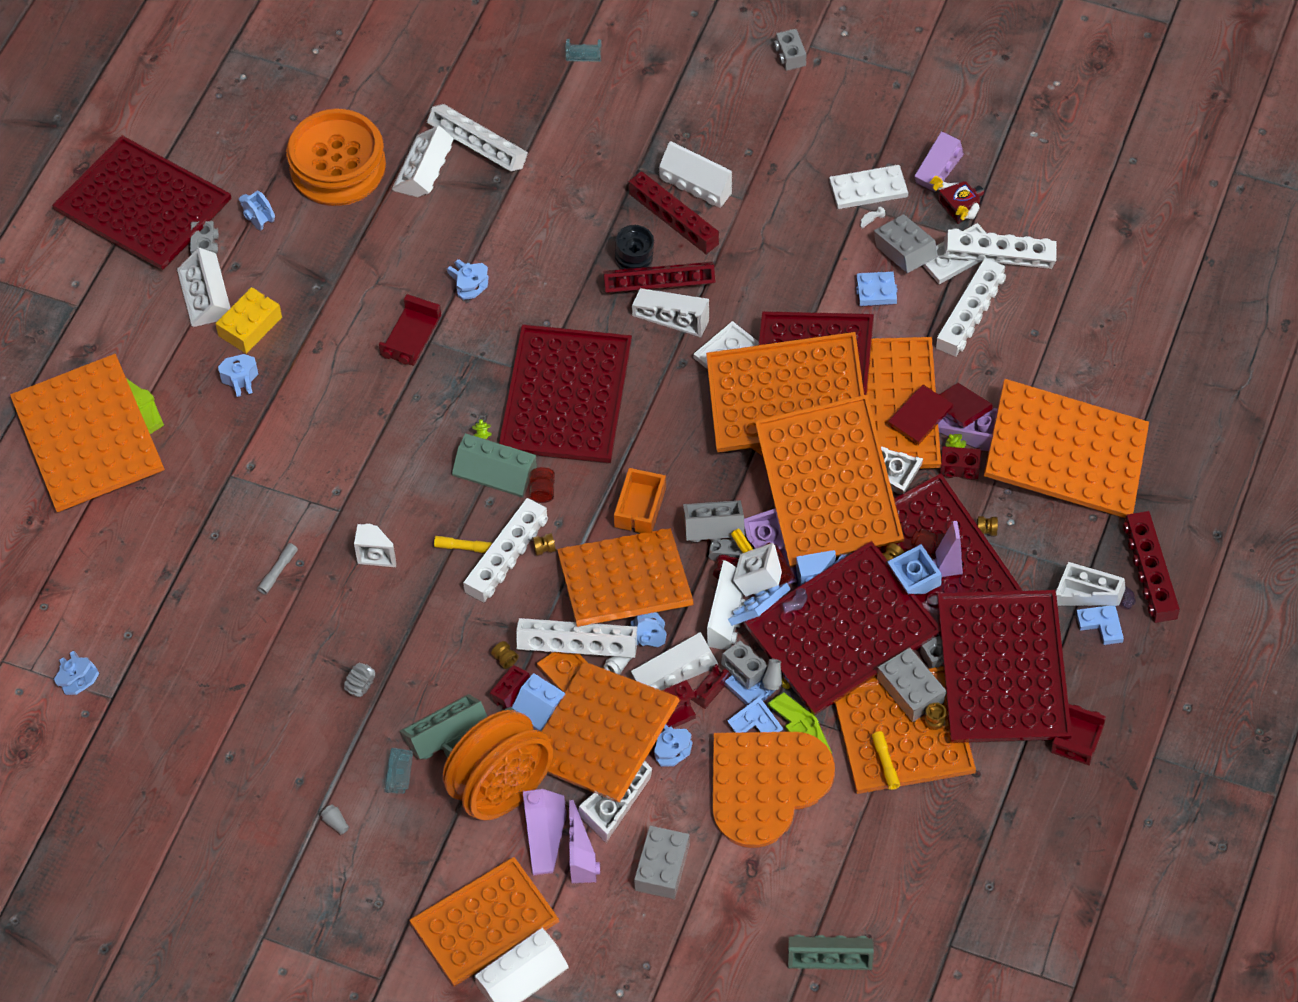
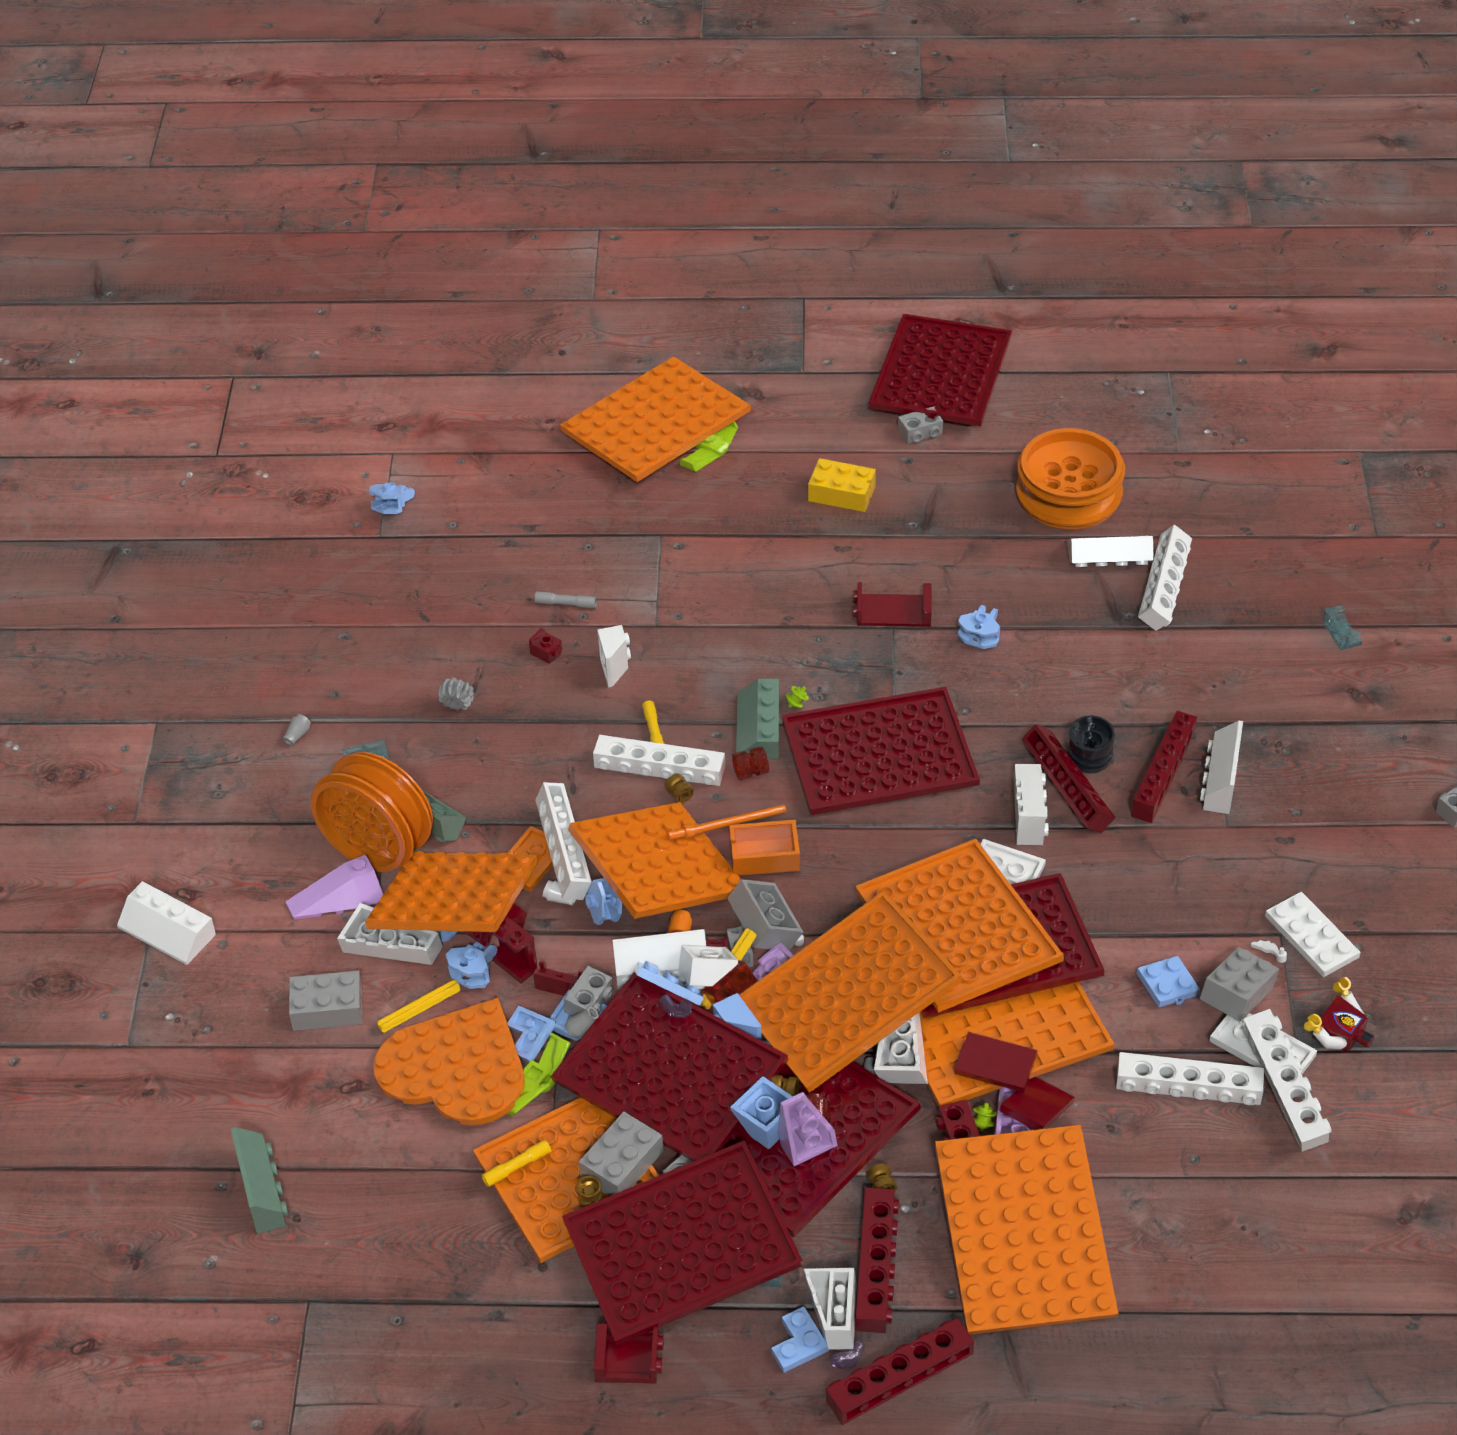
camera: 70 degrees right, 10 degrees down
(203, 288) = (867, 442): white slope -> none
(238, 374) = (773, 499): light blue hinge -> none
(257, 209) = (973, 445): light blue hinge -> none
(330, 598) = (545, 646): none -> dark red brick
(443, 725) = (433, 776): sand green slope -> none
(483, 921) = (217, 877): orange plate -> none
(504, 654) = (527, 800): pearl gold wheel -> none
(509, 686) = (492, 815): dark red hinge -> none
(538, 700) = (488, 836): light blue slope -> none
(582, 856) = (315, 926): lavender wedge -> none
(604, 545) = (690, 830): none -> orange bar
(677, 664) = (570, 939): white wedge -> none
(691, 796) = (418, 1006): none -> yellow axle
(696, 586) = (680, 921): none -> orange brick
(940, 160) = (1386, 986): lavender wedge -> none
(1047, 542) = (868, 1316): none -> dark red brick

